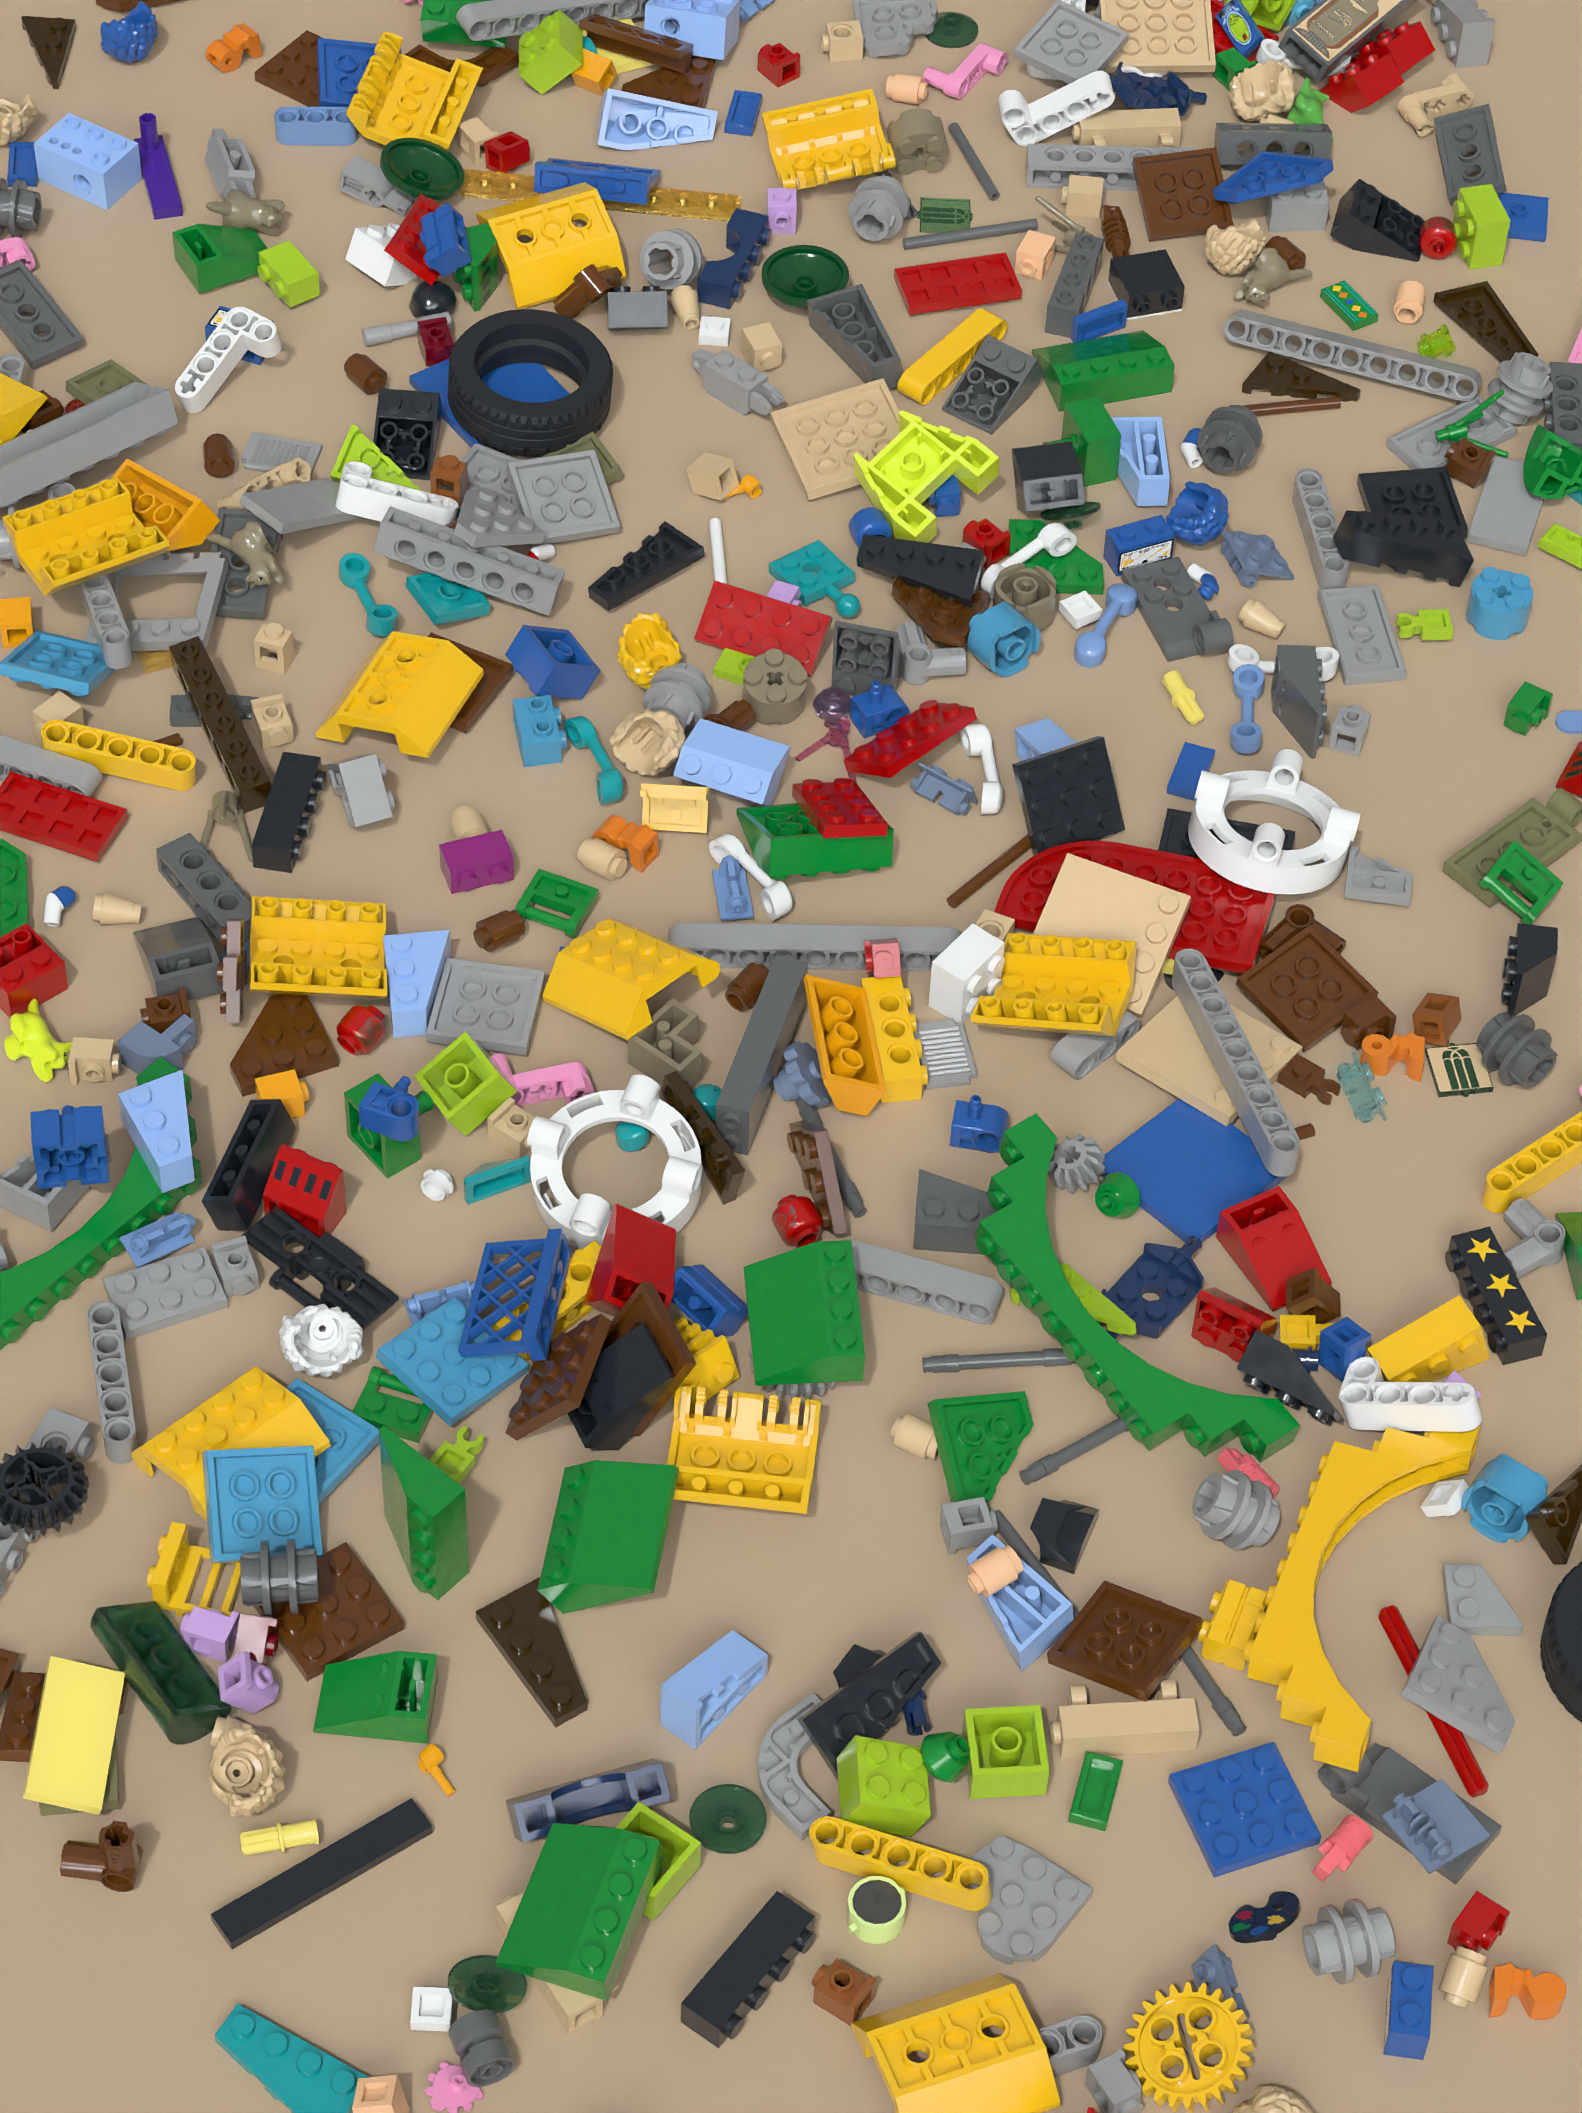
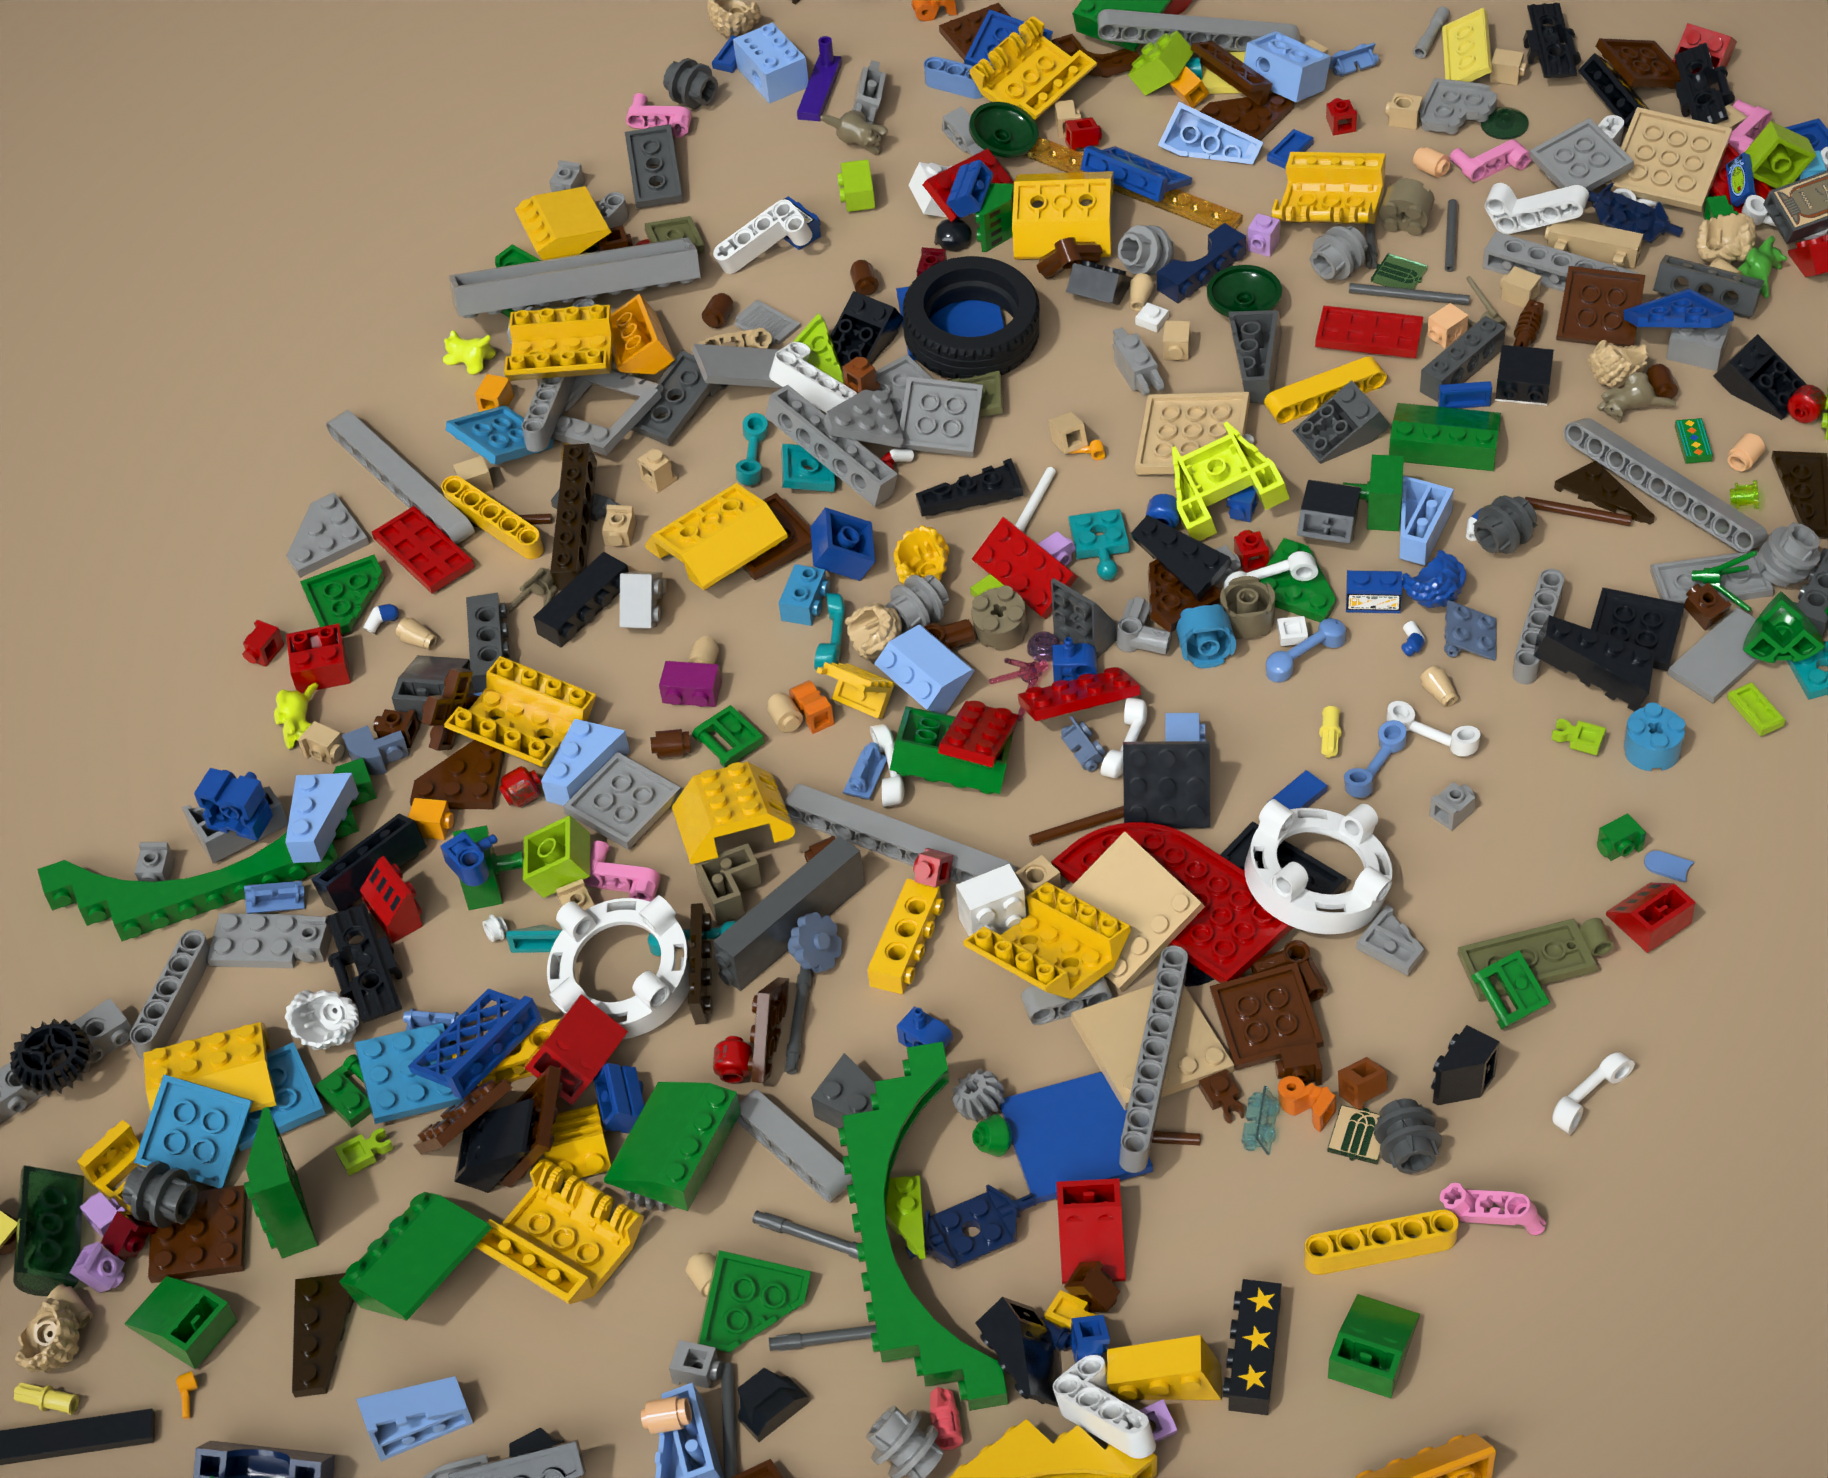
camera: 35 degrees right, 0 degrees up
(216, 254) = (817, 156): green slope -> none
(255, 550) = (681, 390): dark tan animal -> none
(388, 332) = (903, 250): light grey piece -> none
(845, 1044) = (853, 926): light orange slope -> none
(946, 1054) = (942, 964): light grey window -> none
(1071, 515) = (1335, 550): clear green dish -> none
(1179, 633) = (1373, 676): dark grey hinge -> none
(1228, 1322) = (1012, 1277): red slope -> none
(1298, 695) = (1423, 758): dark grey slope -> none
(1361, 635) = (1520, 727): light grey tile -> none
(1541, 1238) = (1313, 1318): light grey piece -> none

